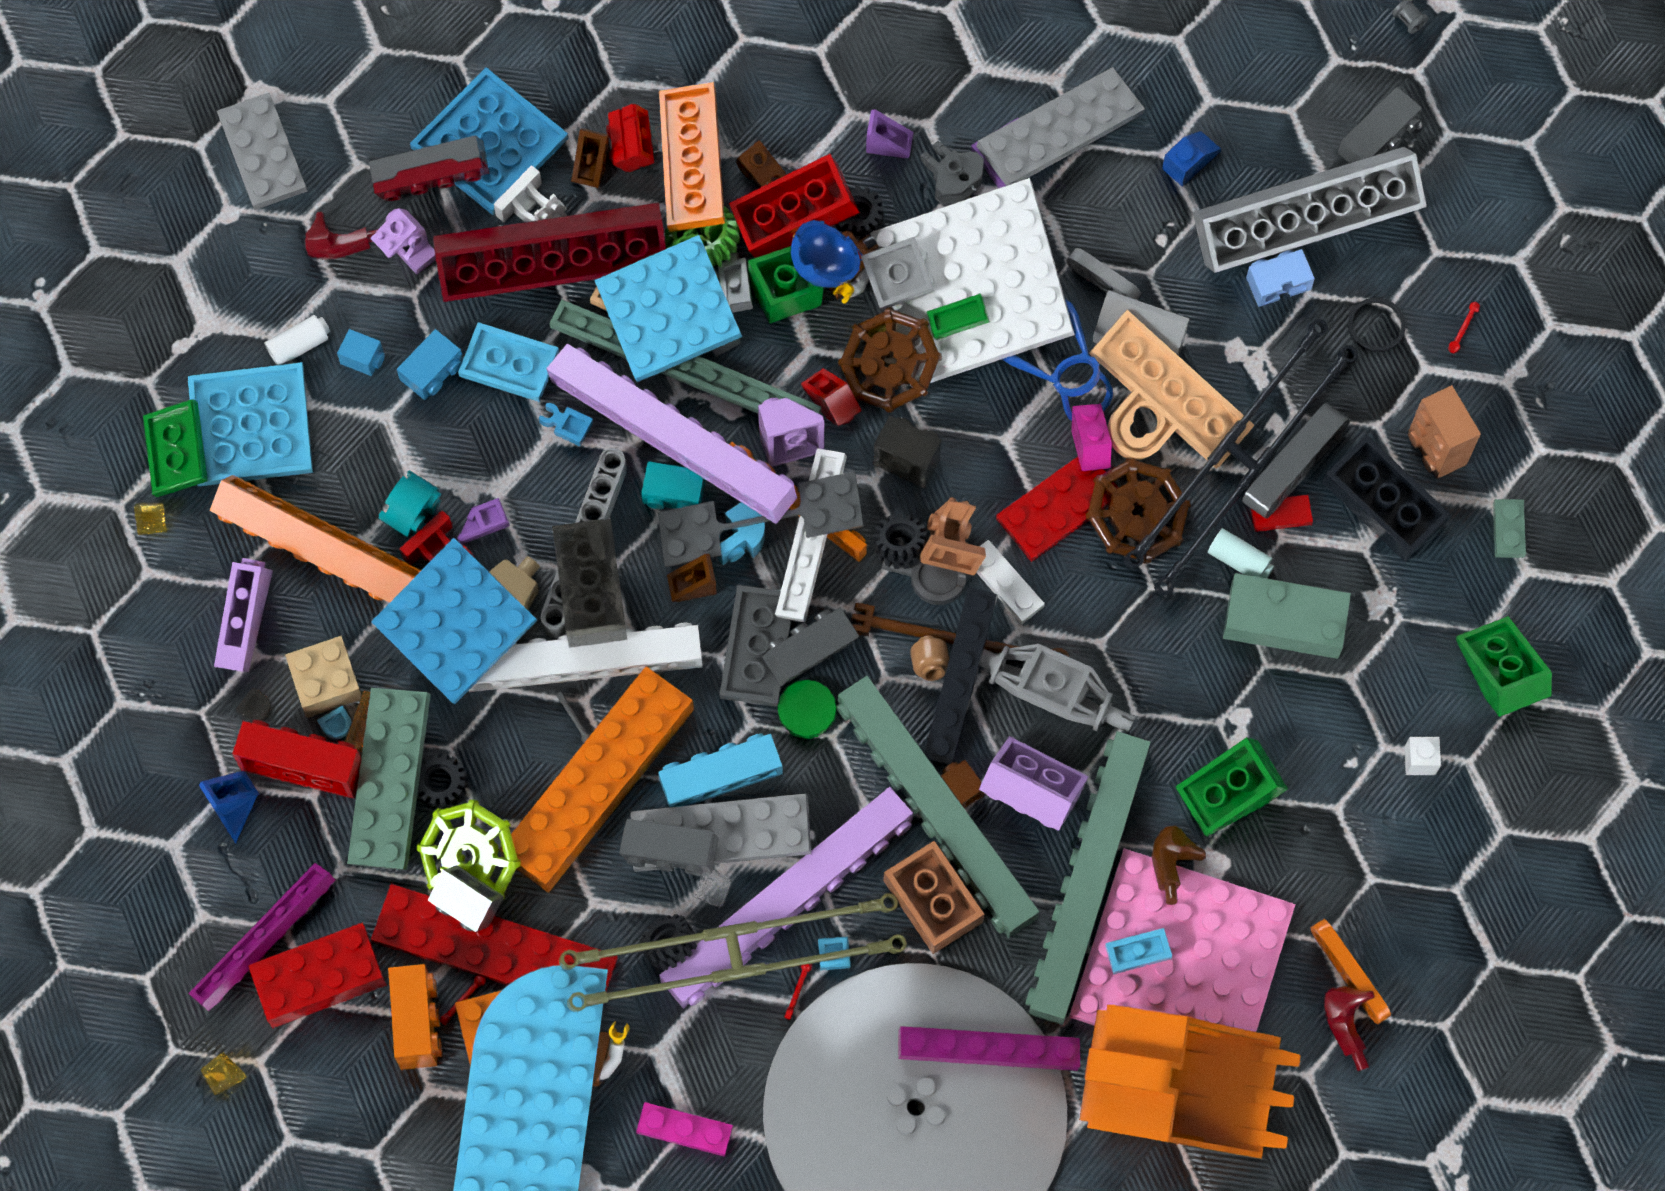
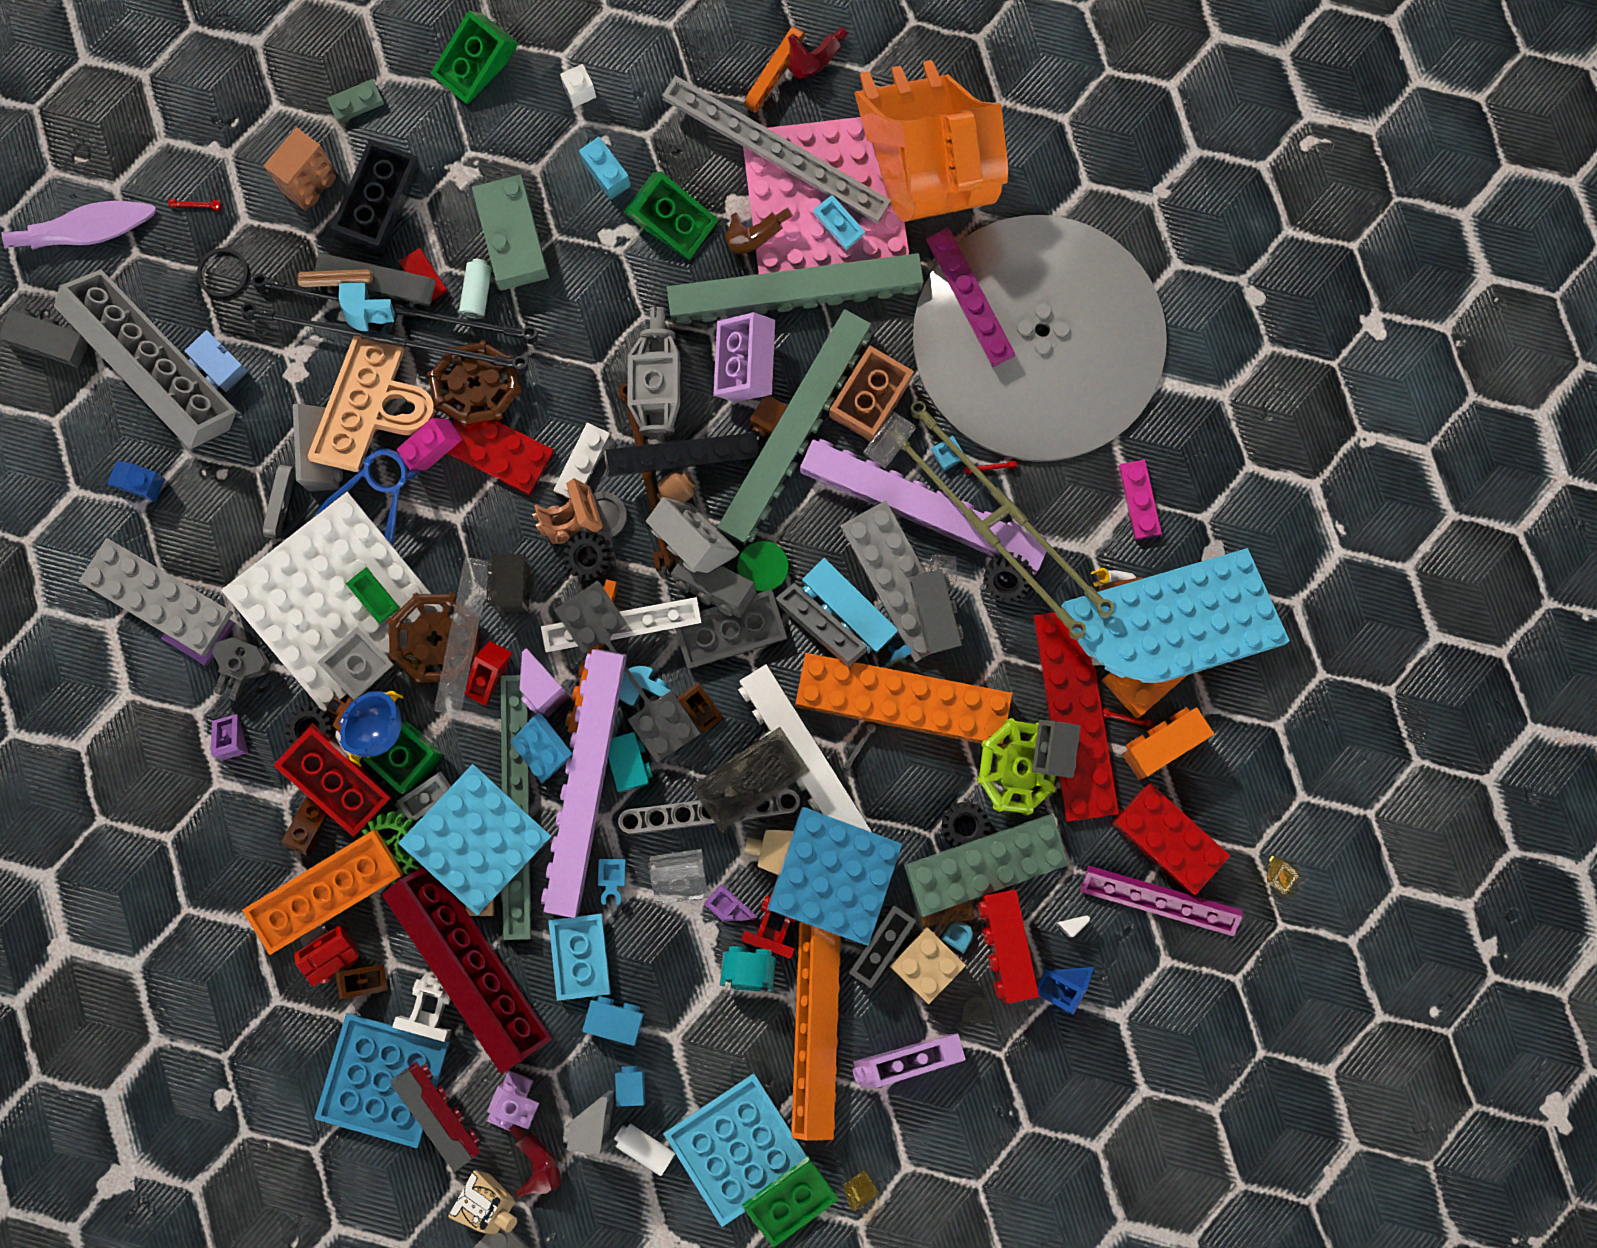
camera: 115 degrees left, 10 degrees up
(286, 836) = (1073, 926): none -> white slope
(325, 177) = (484, 1205): none -> torso
(339, 294) = (591, 1128): none -> light grey slope
(364, 641) = (882, 946): none -> dark grey brick
(537, 484) = (678, 876): none -> clear bracket
(645, 795) = (897, 656): none -> dark azure bar
(714, 731) = (821, 624): none -> dark grey plate
(725, 404) = (541, 747): none -> dark azure plate
(869, 644) = (690, 535): none -> light grey slope
(873, 890) = (889, 440): none -> clear tile
(877, 384) = (462, 636): none -> clear tile
(1252, 923) = (776, 149): none -> light grey plate
(1270, 426) = (360, 310): none -> medium azure brick
(1311, 419) = (333, 278): none -> medium nougat axle
(1315, 741) = (604, 168): none -> medium azure brick
(1487, 214) = (83, 225): none -> lavender animal

